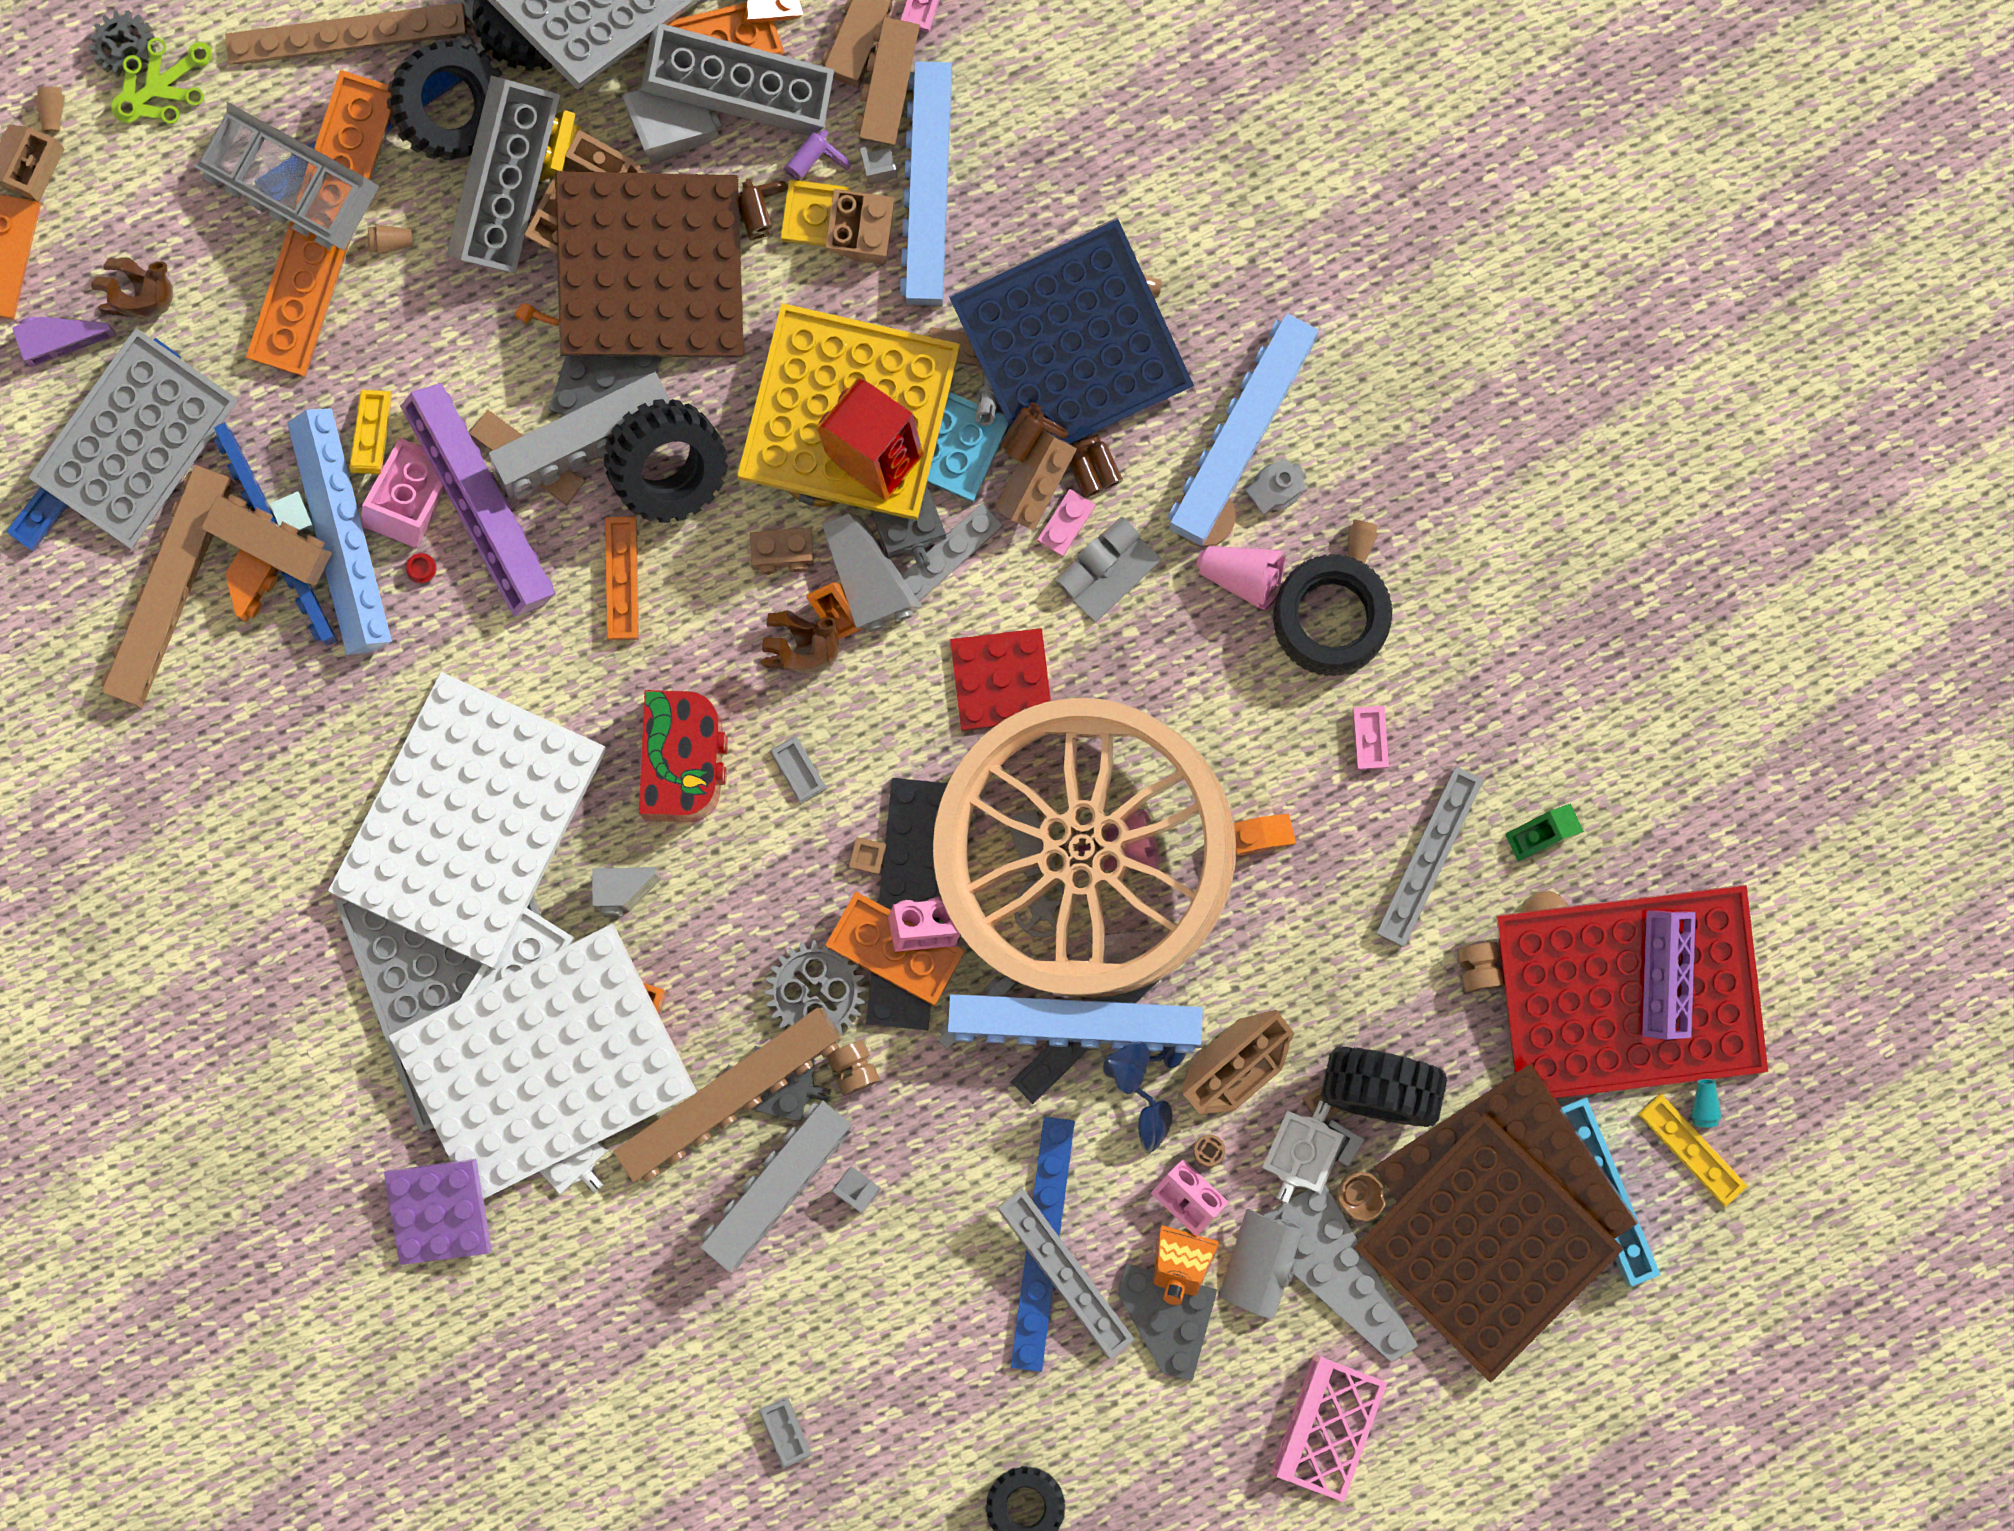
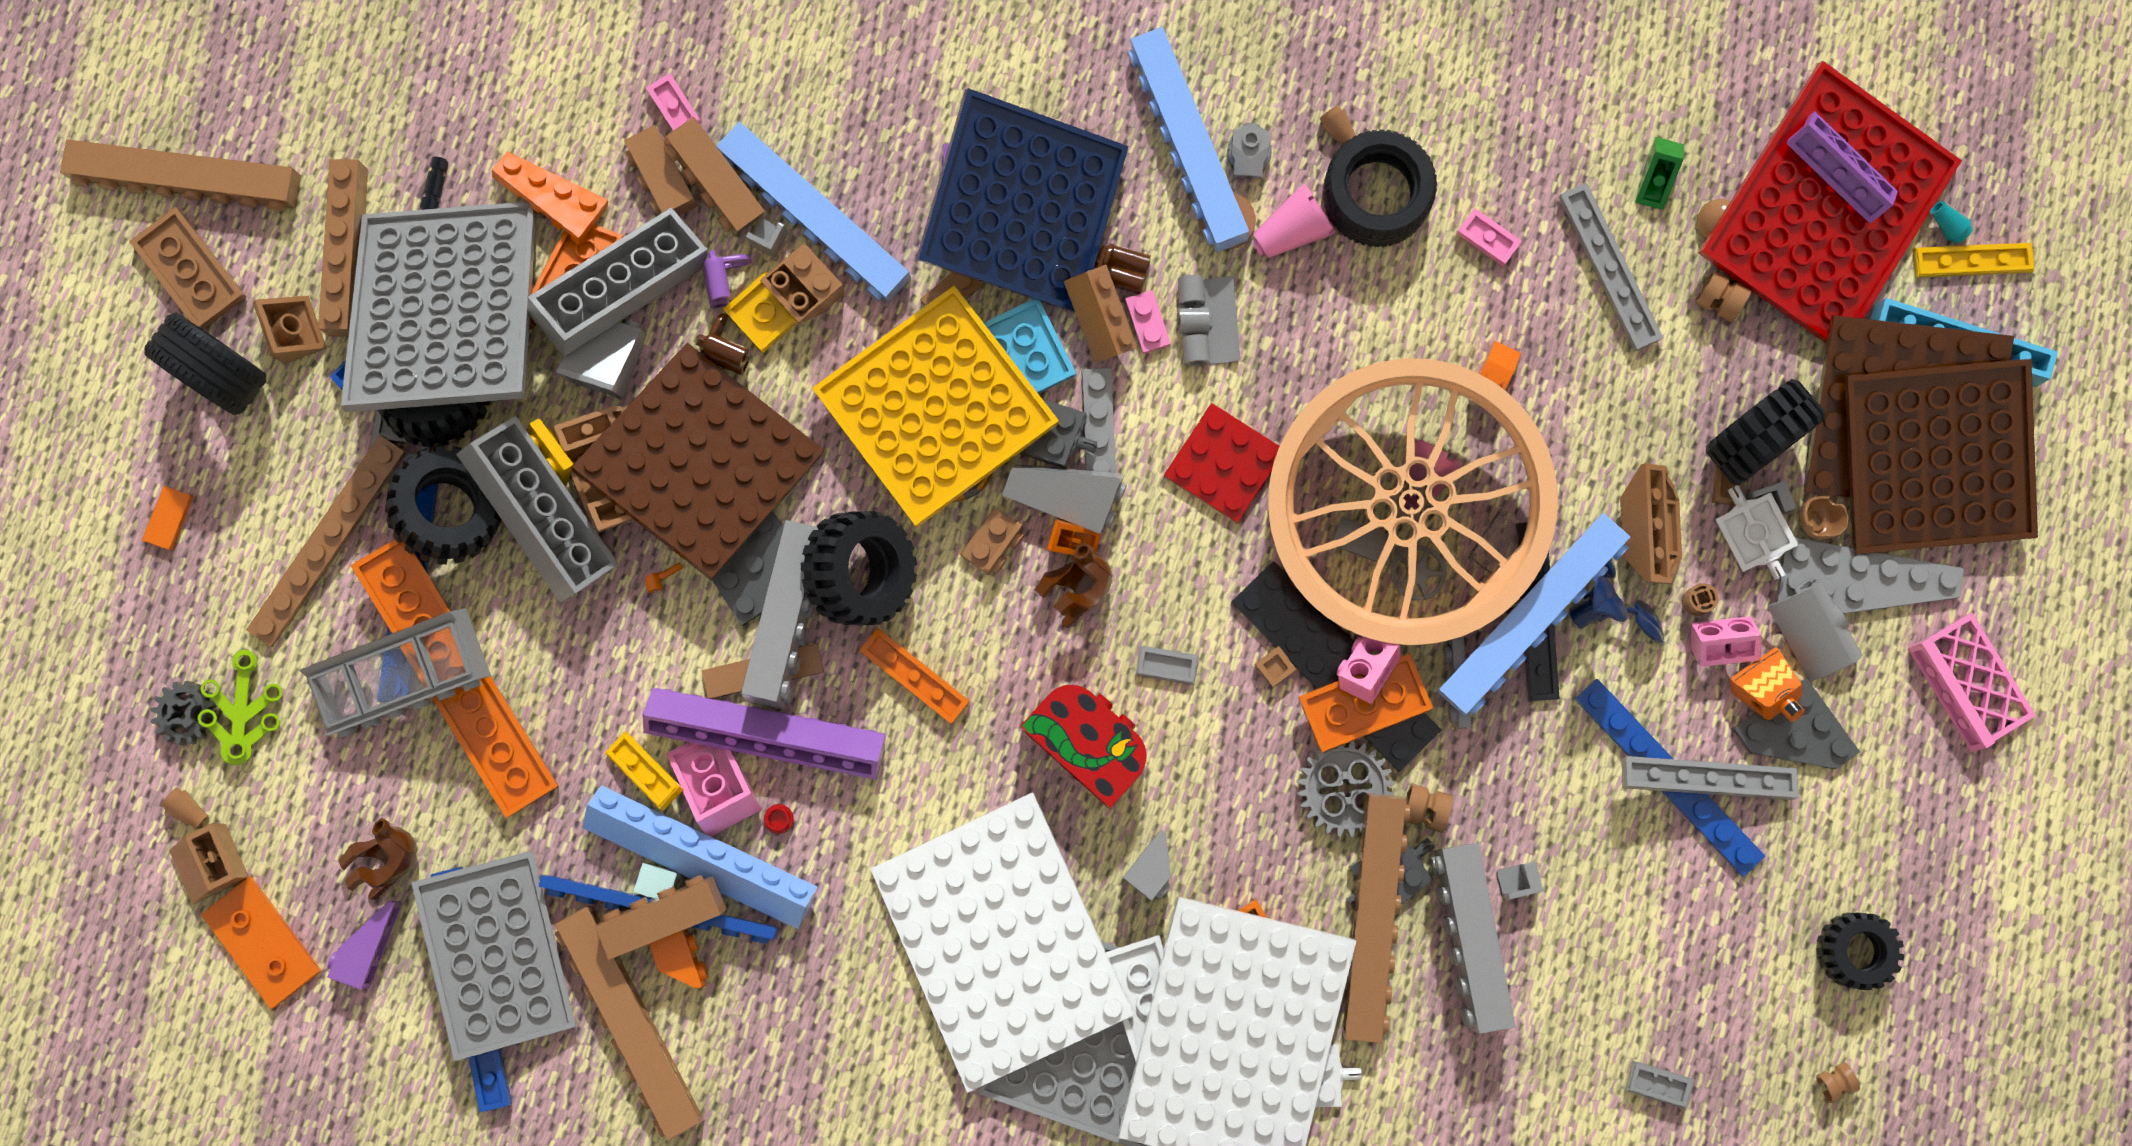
camera: 50 degrees left, 0 degrees up
(388, 238) = (508, 637): medium nougat cone -> none
(871, 438) = (976, 399): red brick -> none
(986, 403) = (1011, 301): light grey pin -> none
(1026, 431) = (1061, 290): reddish brown piece -> none

